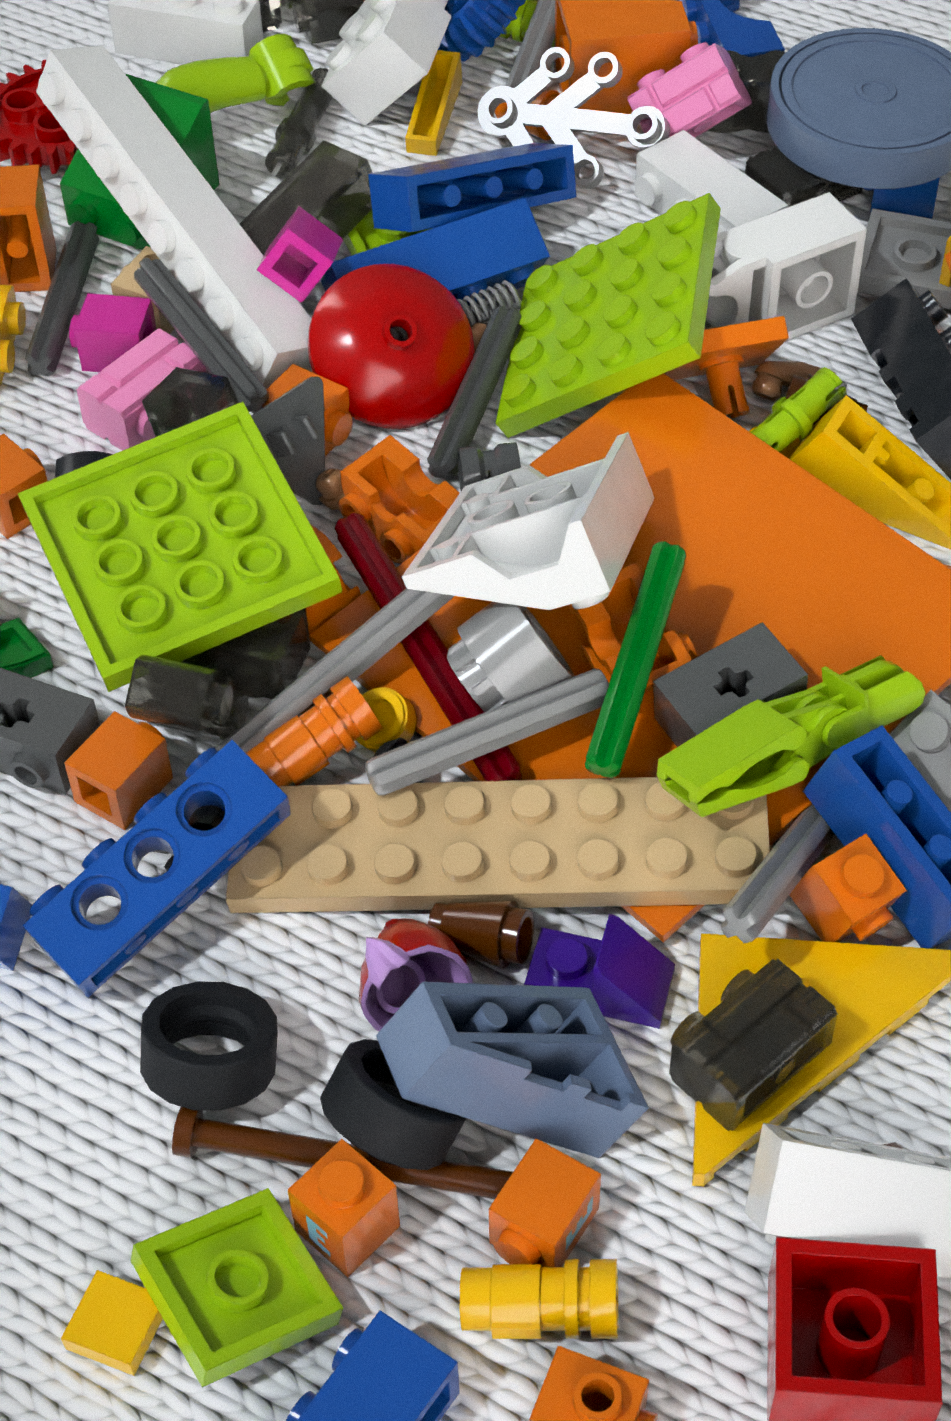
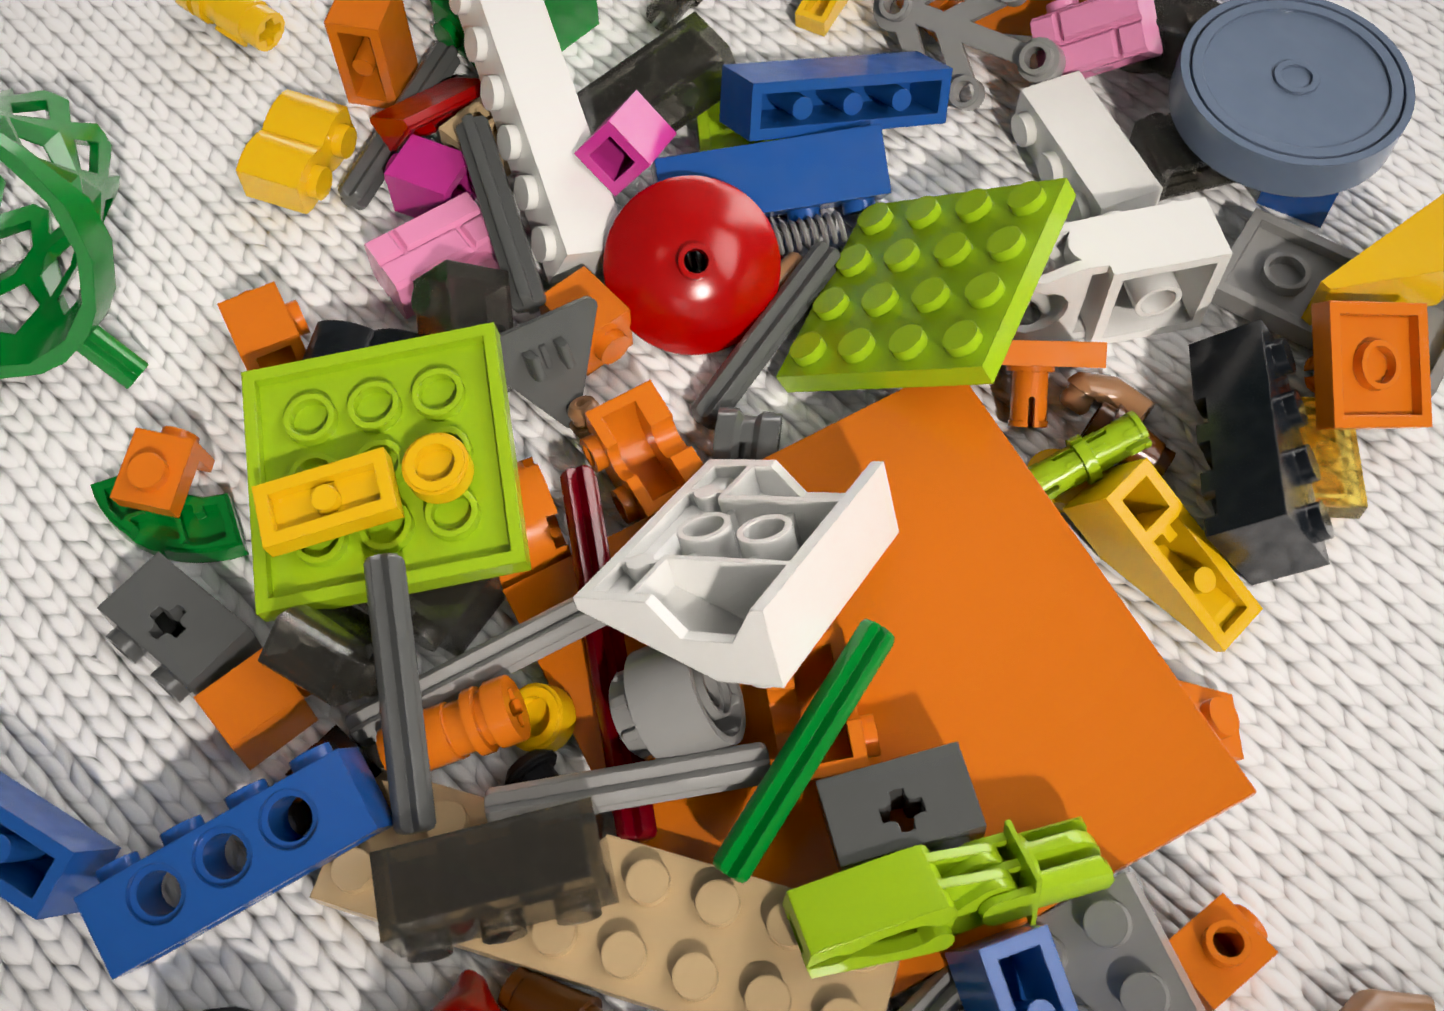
camera: 15 degrees right, 10 degrees up
(90, 275) = (425, 111): none -> red slope
(145, 567) = (327, 502): none -> yellow plate
(235, 522) = (437, 468): none -> yellow tile
(261, 705) = (399, 694): none -> dark grey axle
(400, 820) = (493, 881): none -> clear smoke brick

